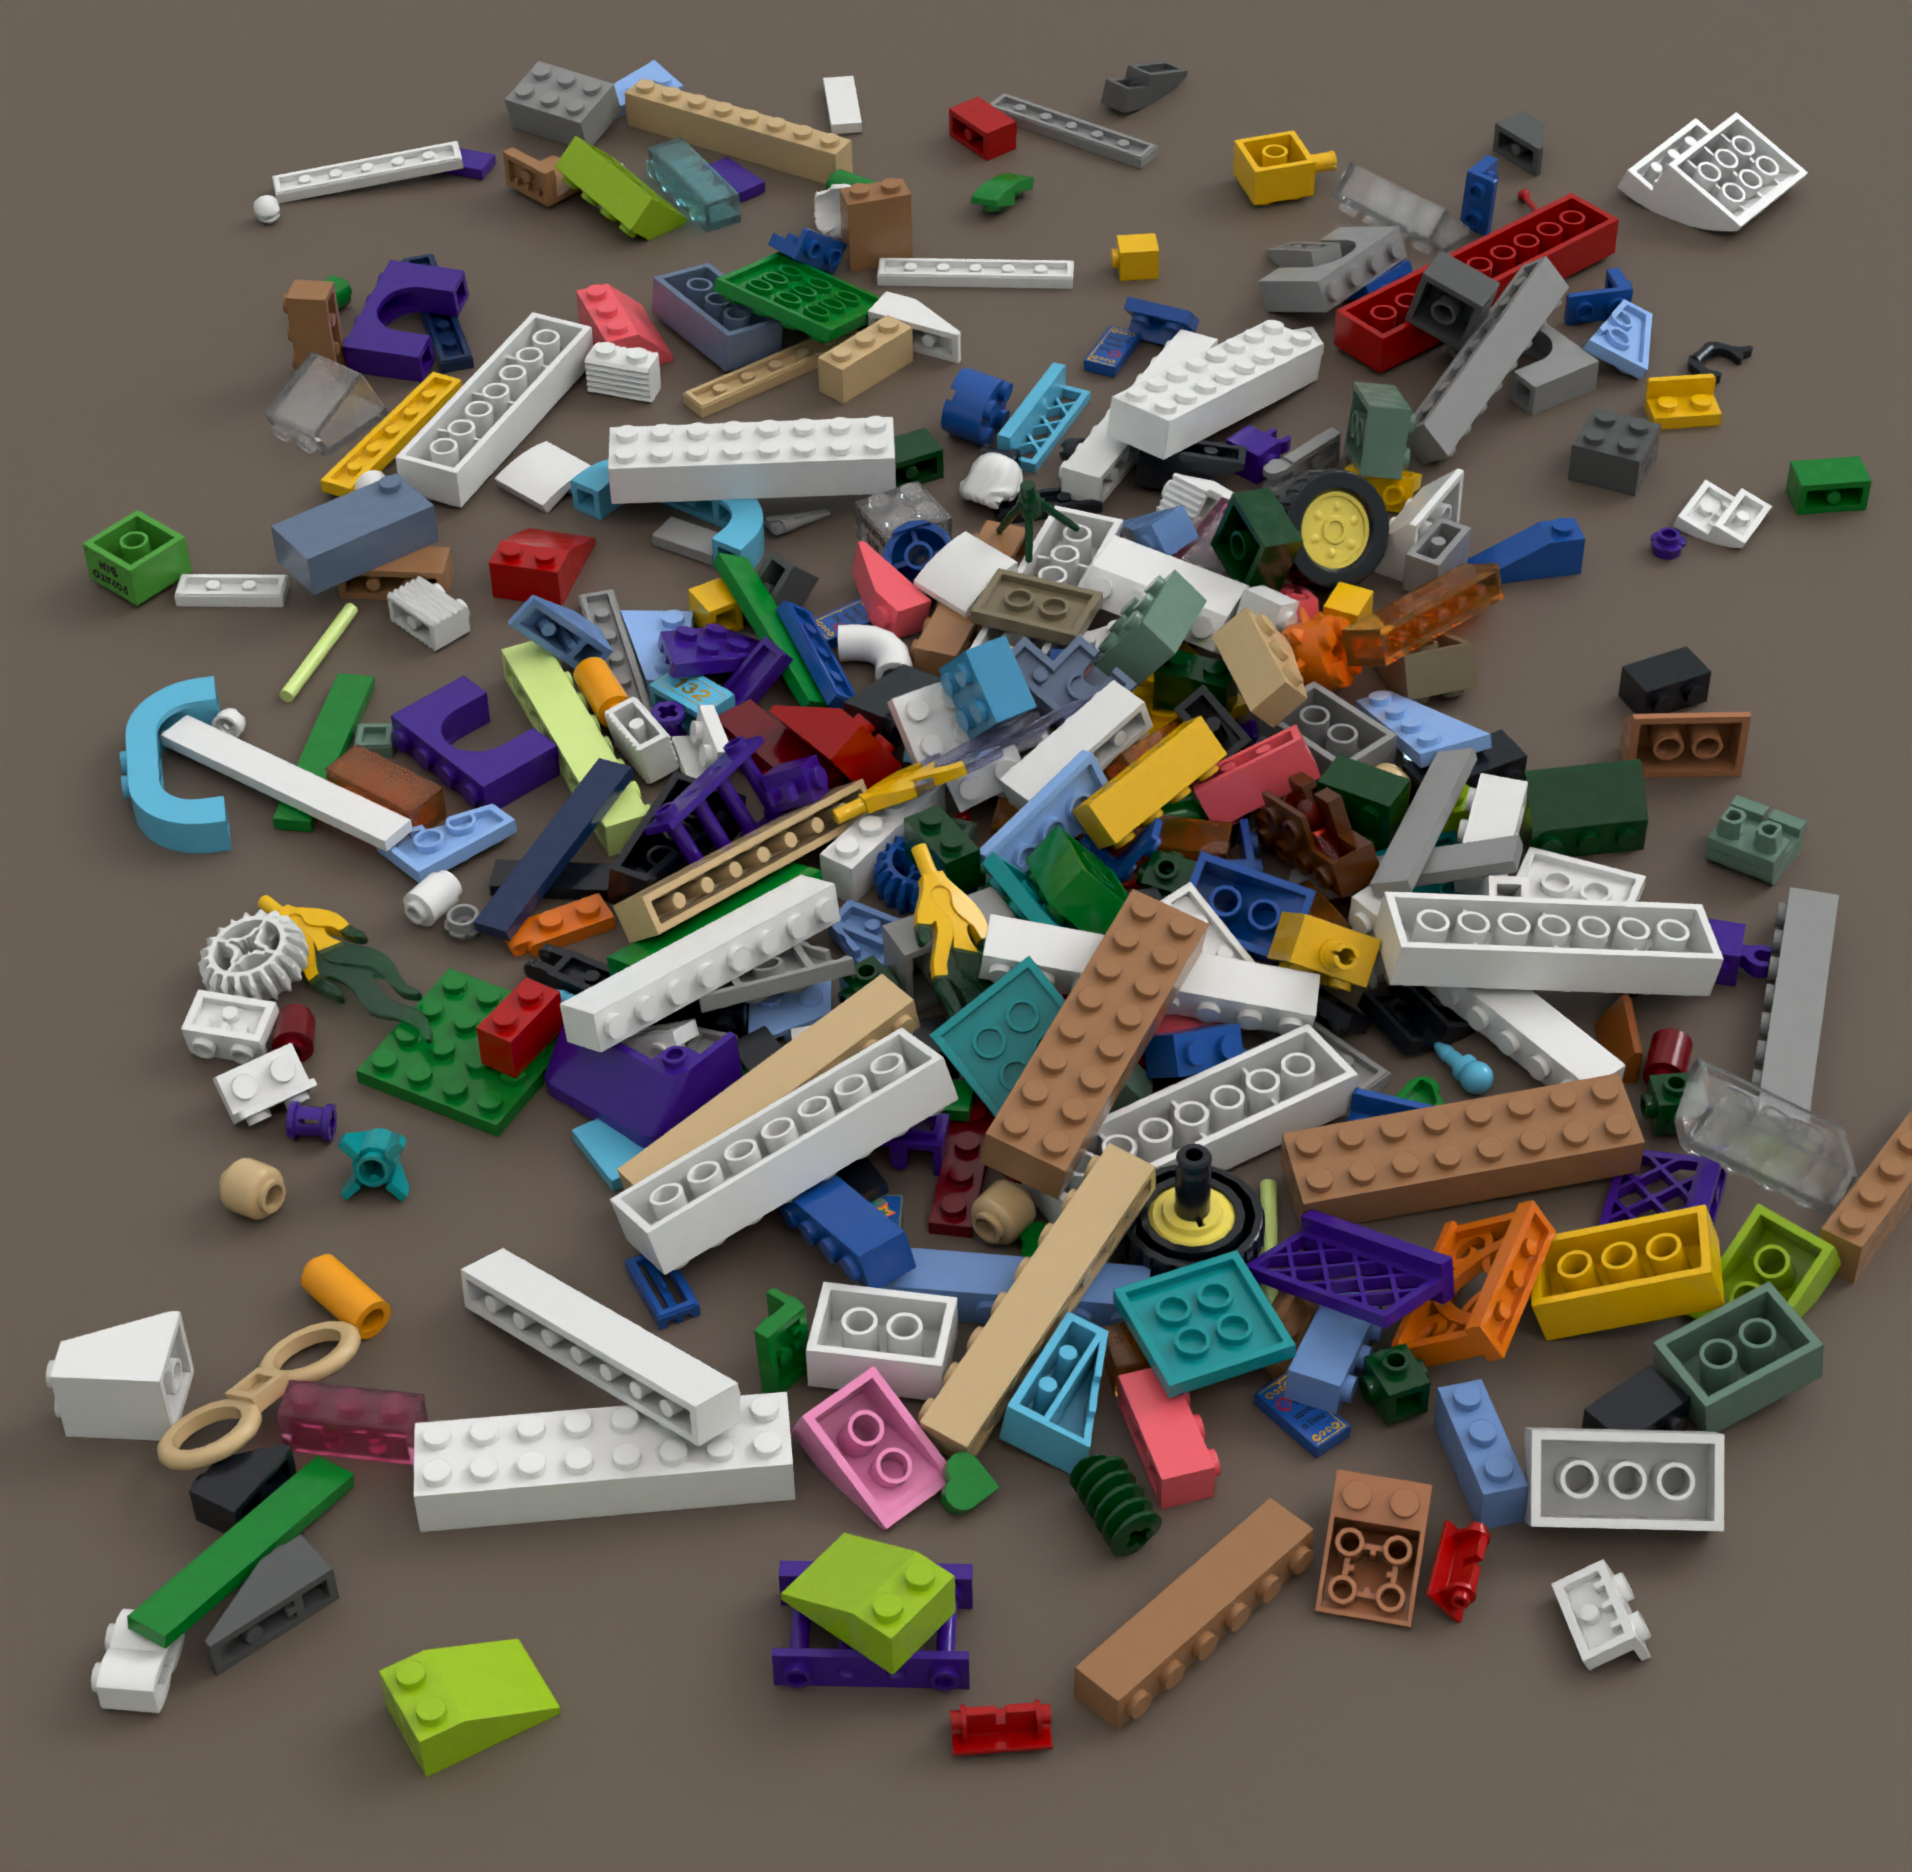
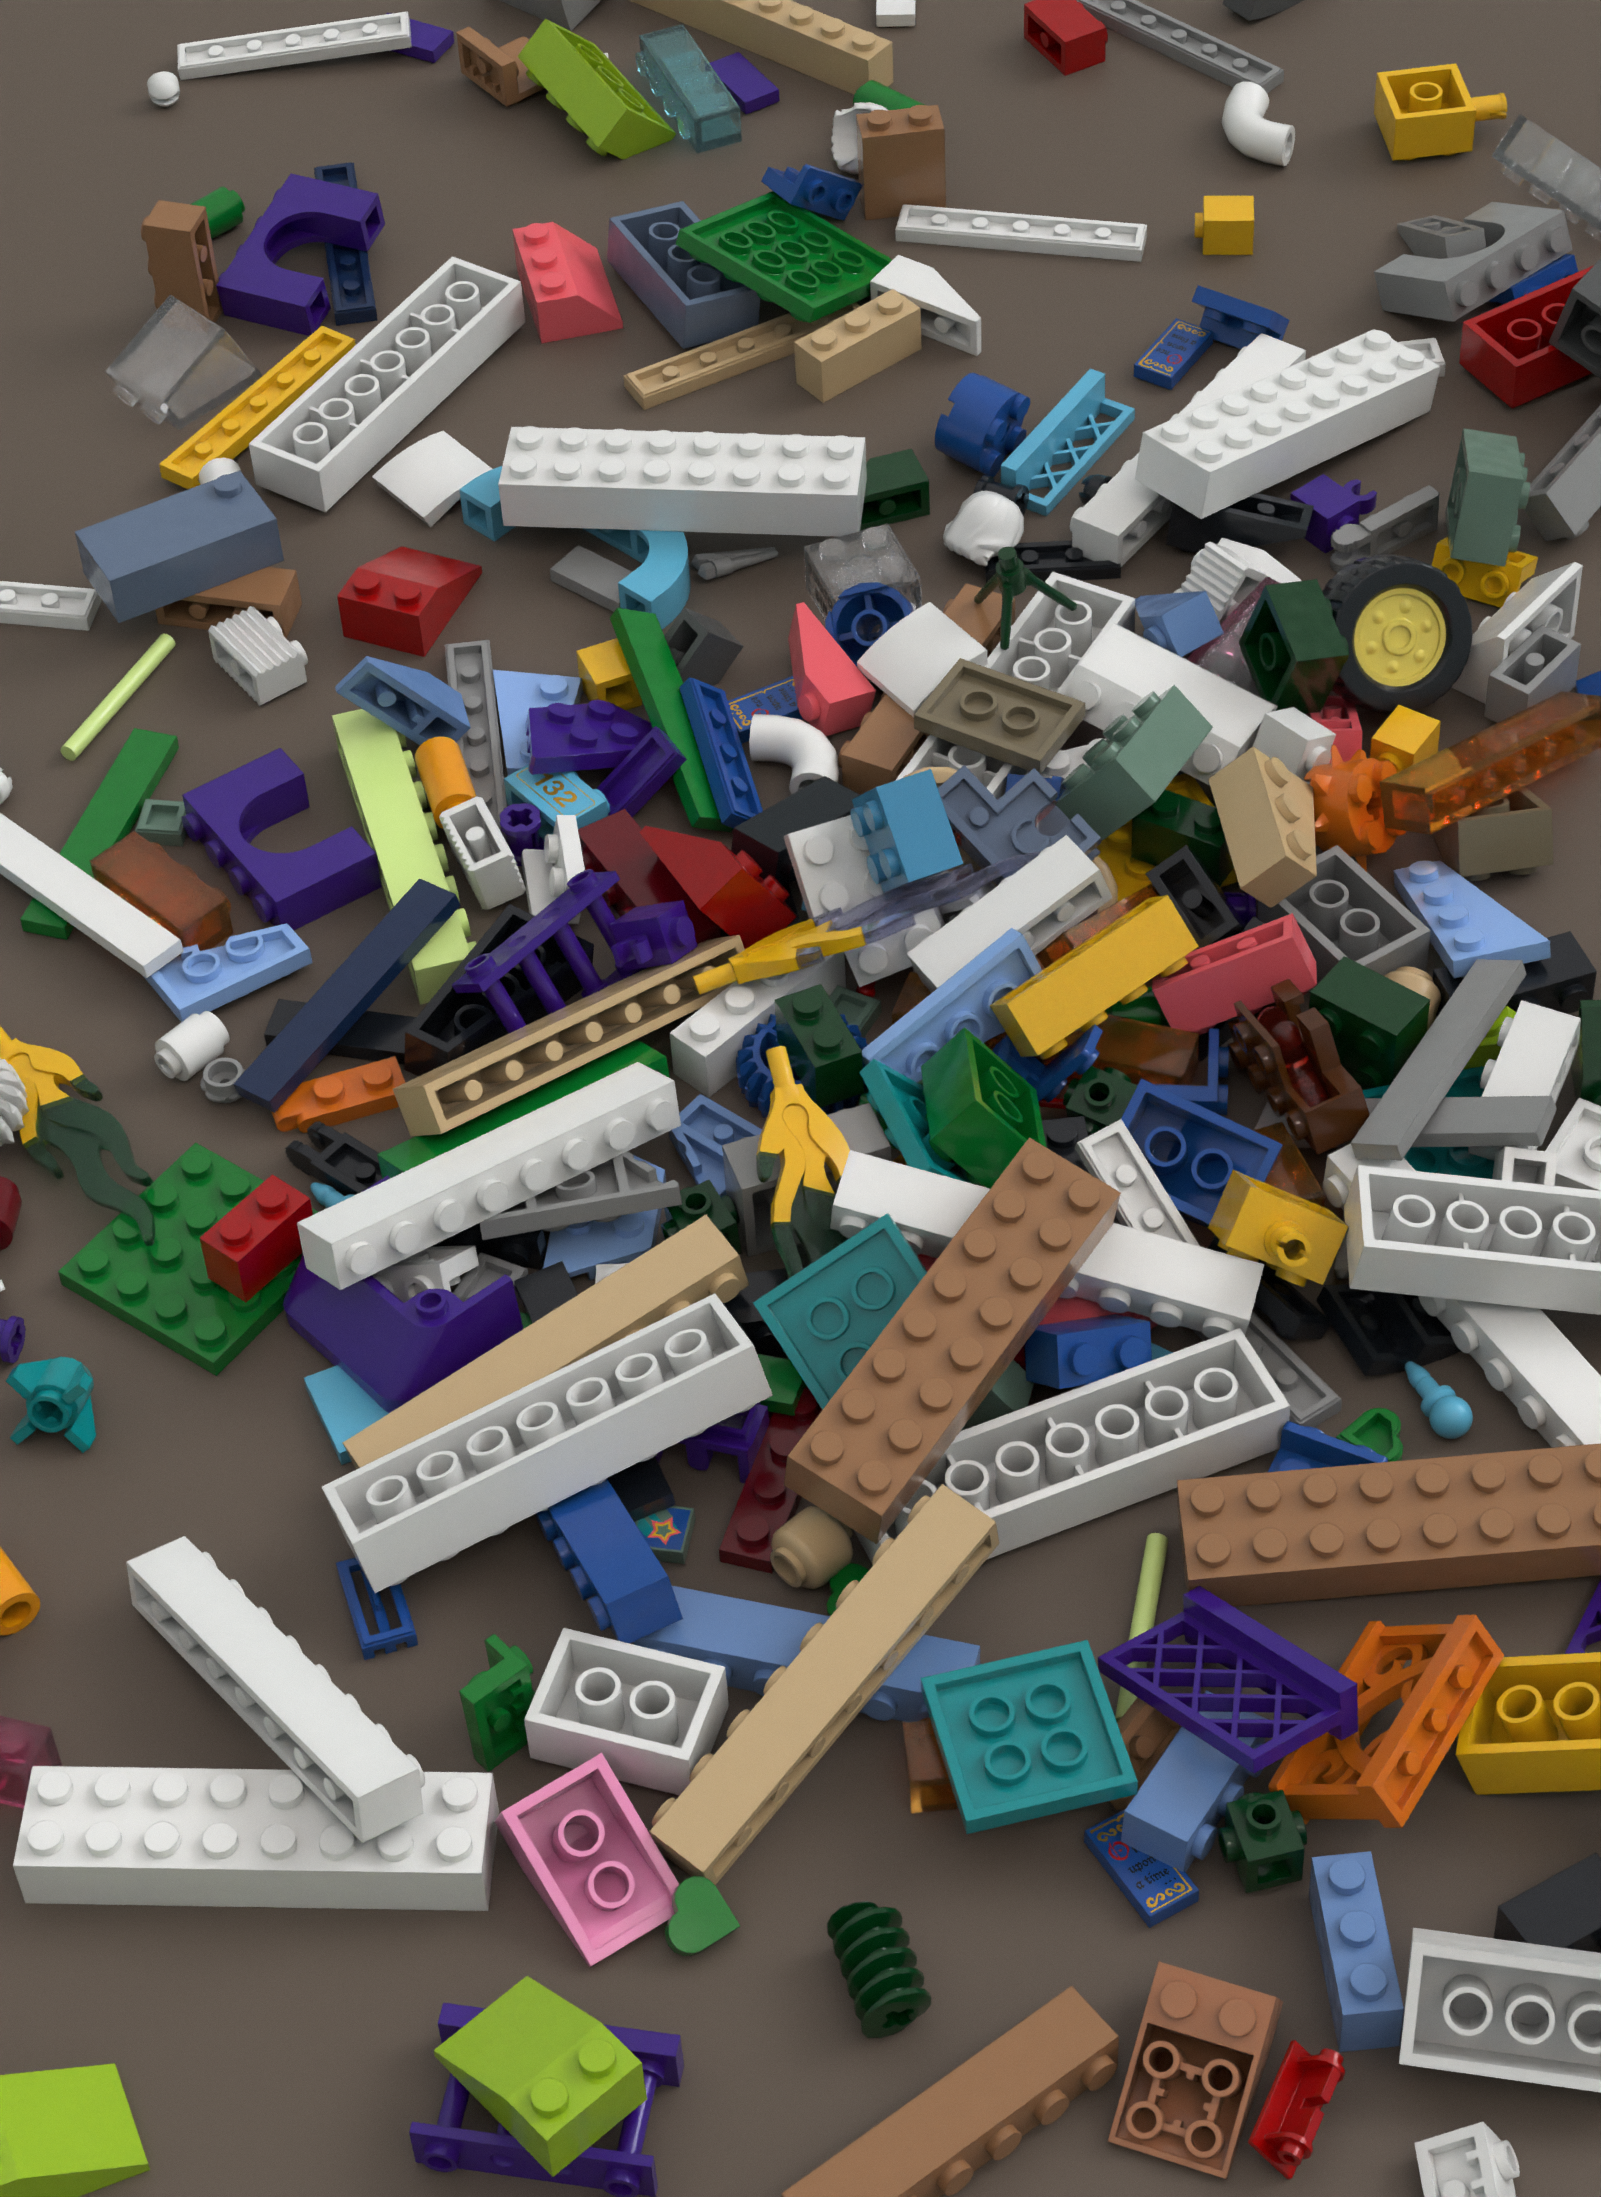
camera: 10 degrees right, 5 degrees up
(623, 372) = (554, 342): white brick -> none
(1001, 191) = (1072, 121): green slope -> none
(1058, 1397) = (832, 1812): medium azure wedge -> none
(1143, 191) = (1252, 133): none -> white cylinder
(1167, 1440) = (962, 1887): coral brick -> none
(1194, 1216) = (1047, 1587): black wheel -> none

